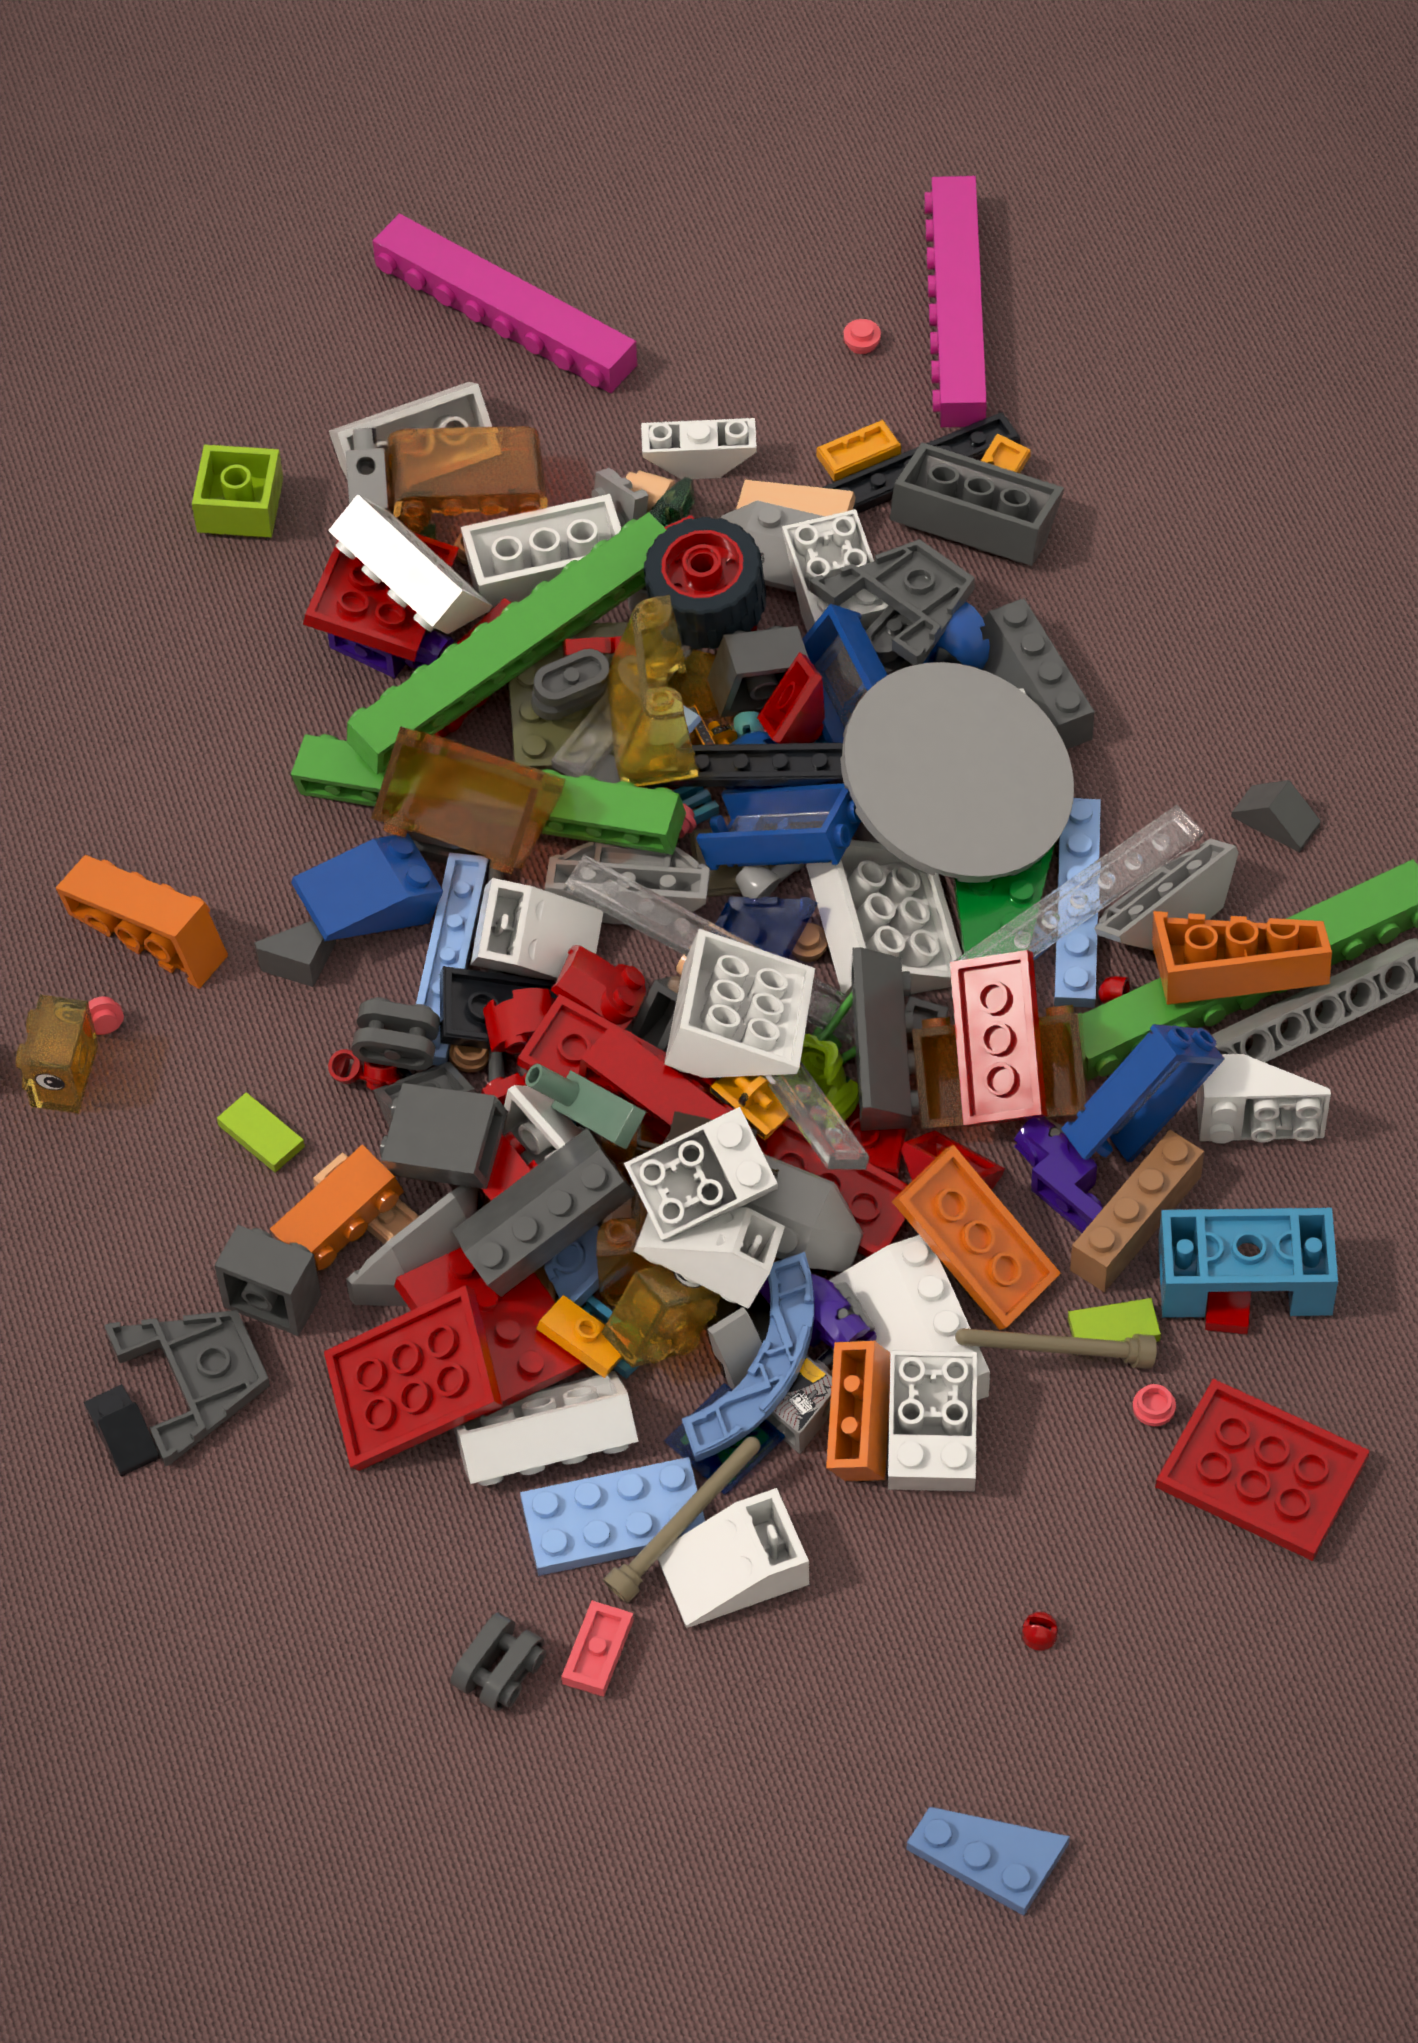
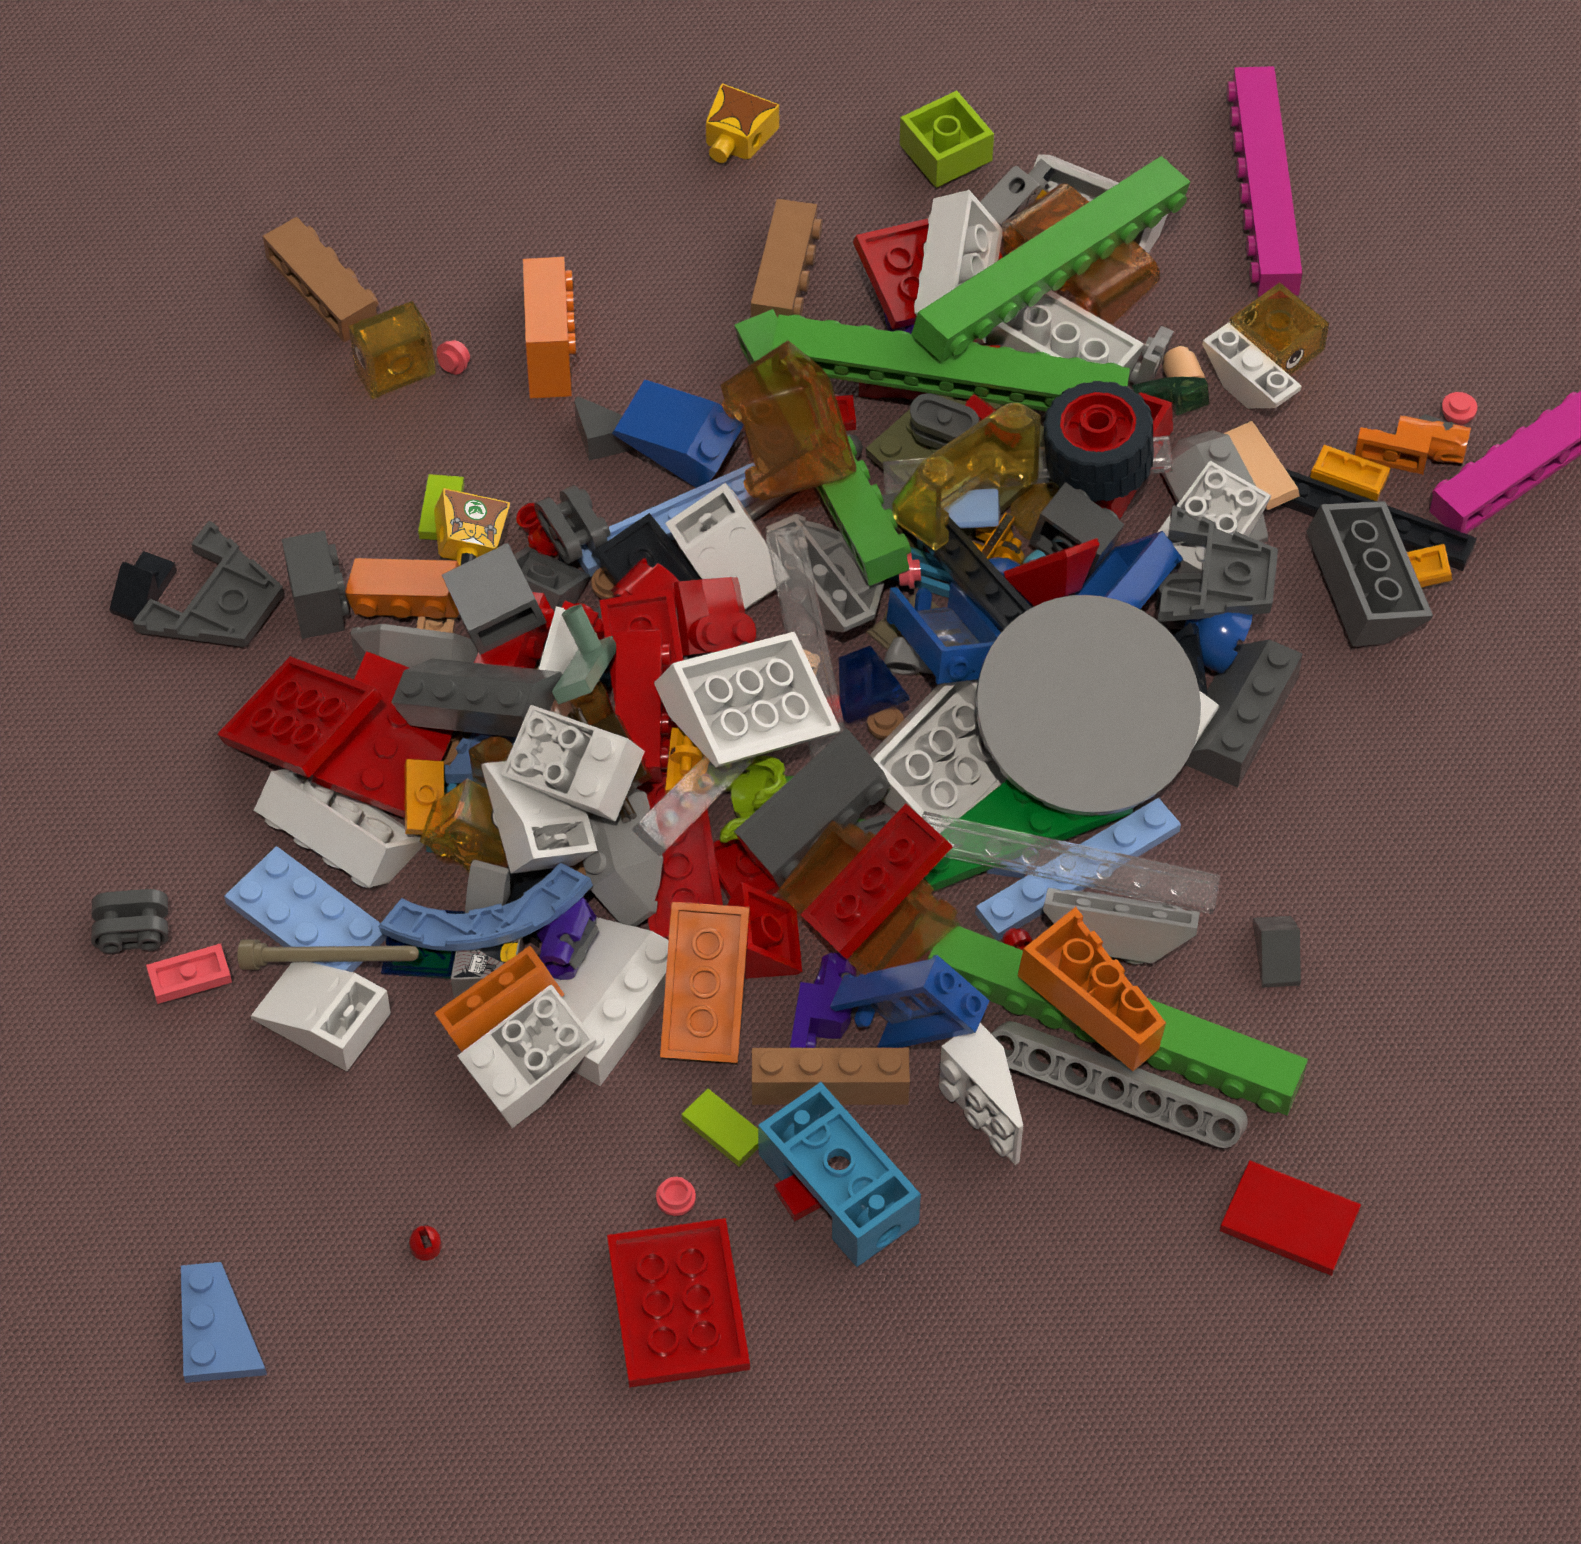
camera: 50 degrees right, 0 degrees up
(56, 632) = (739, 124): none -> yellow torso
(249, 697) = (786, 259): none -> medium nougat brick
(316, 1120) = (468, 524): none -> torso
(482, 491) = (1050, 259): none -> bright green brick
(677, 389) = (1283, 328): none -> clear yellow brick
(873, 386) = (1414, 443): none -> orange plate
(1138, 1350) = (708, 1151): dark tan piece -> none

